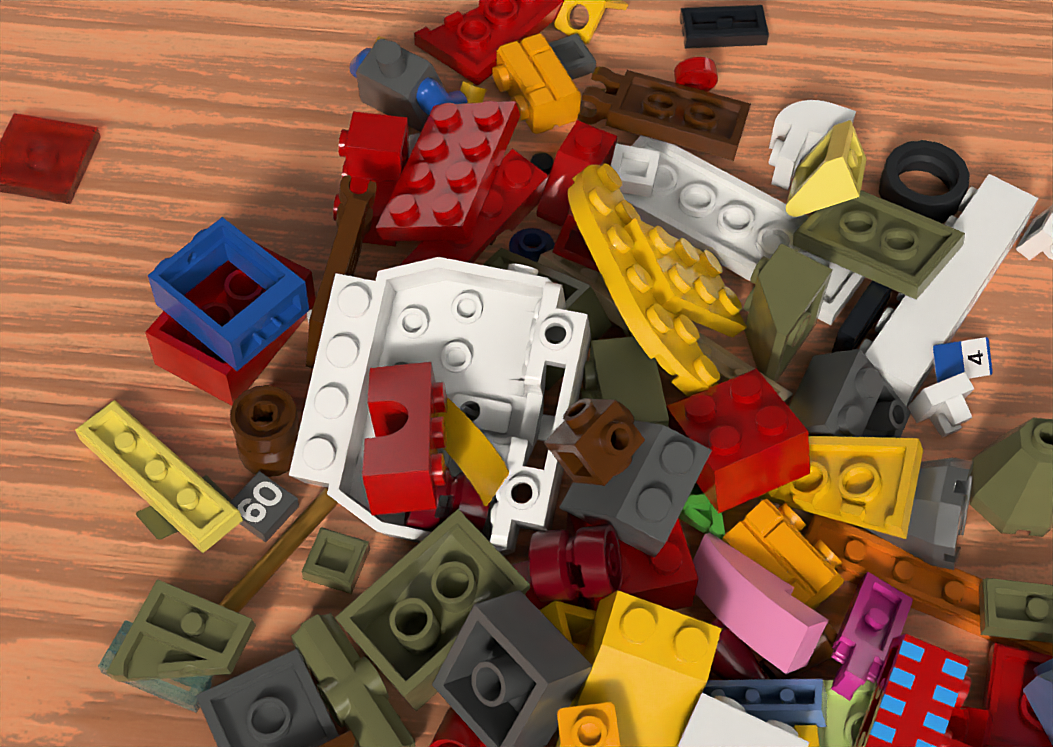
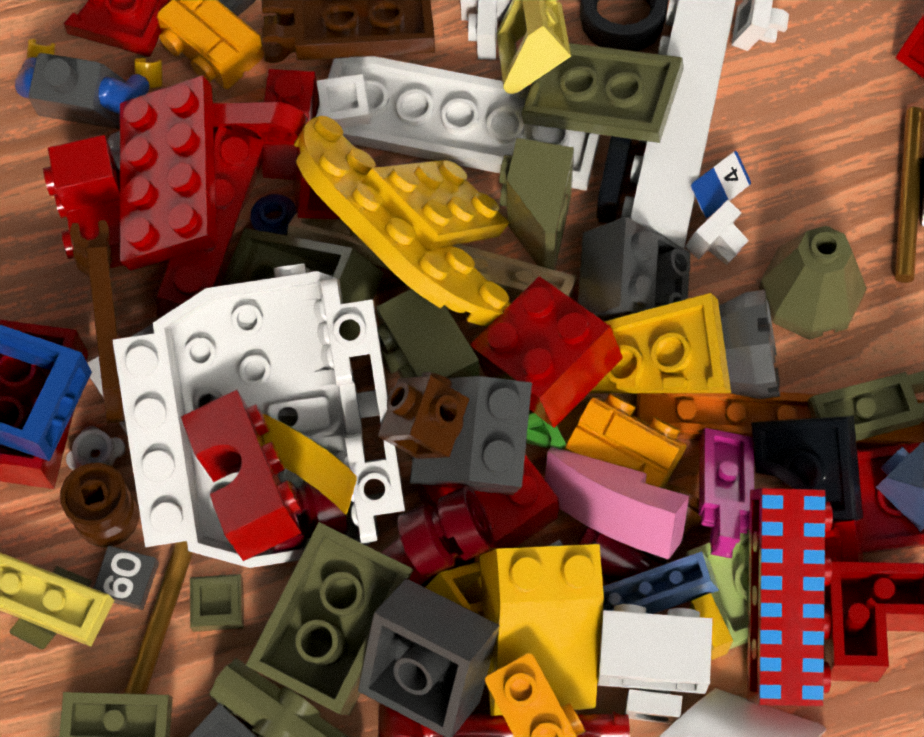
camera: 15 degrees left, 10 degrees up
(286, 377) = (90, 440): none -> white plate
(554, 155) = (267, 121): none -> red beam
(972, 628) = (813, 457): none -> black tile

